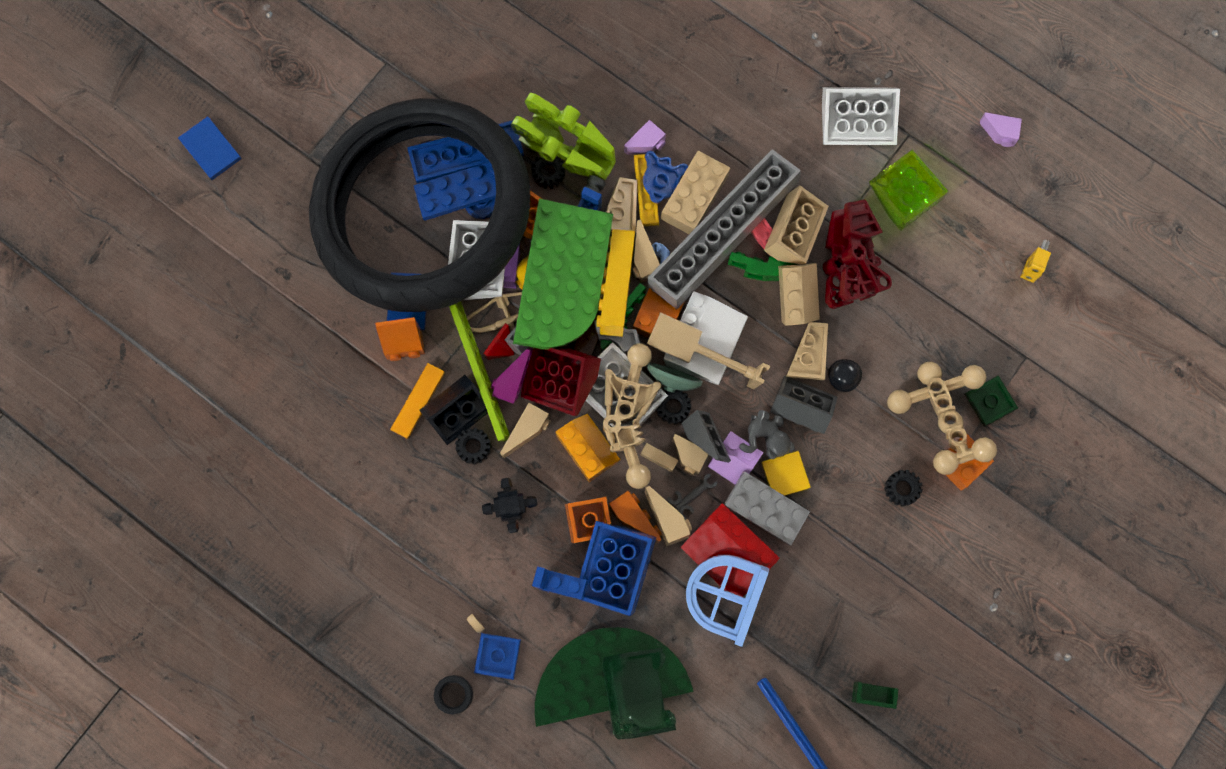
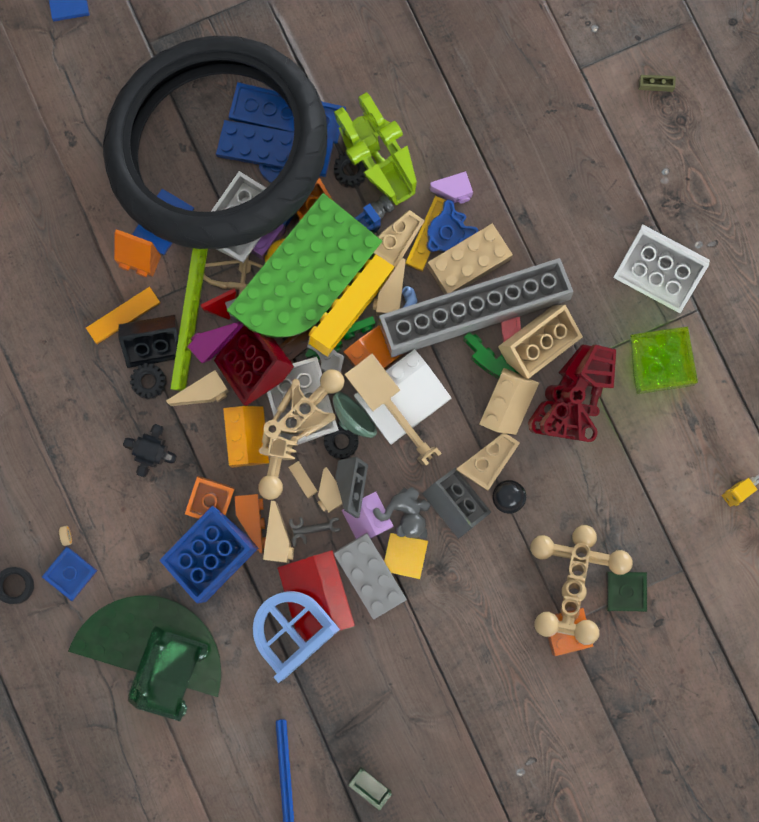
camera: 30 degrees right, 5 degrees up
(559, 583) = (152, 541): blue bracket -> none
(911, 479) = (513, 624): black tyre -> none

